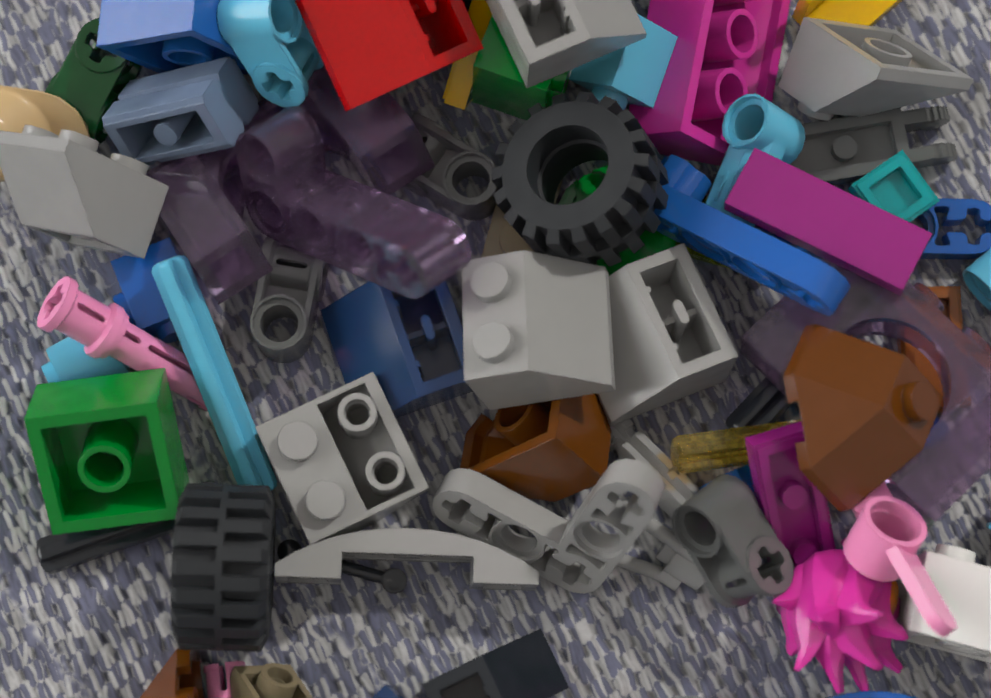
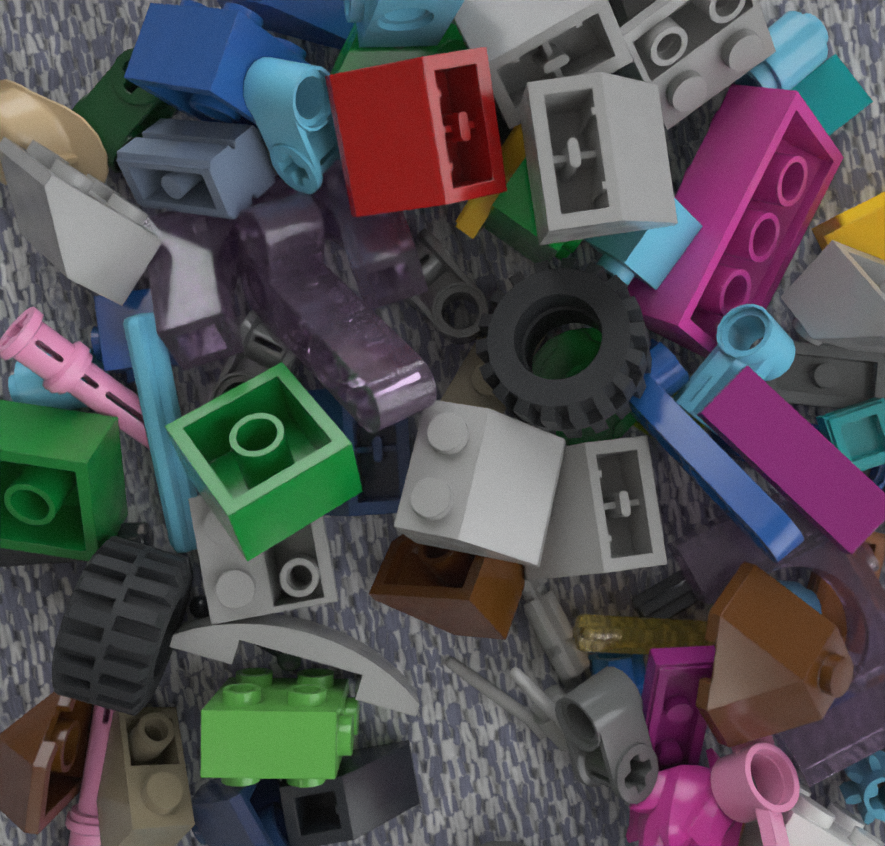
camera: 10 degrees right, 10 degrees up
(324, 356) = (266, 459): none -> green brick
(422, 625) = (278, 728): none -> bright green brick
(580, 552) = (467, 691): light grey beam -> none

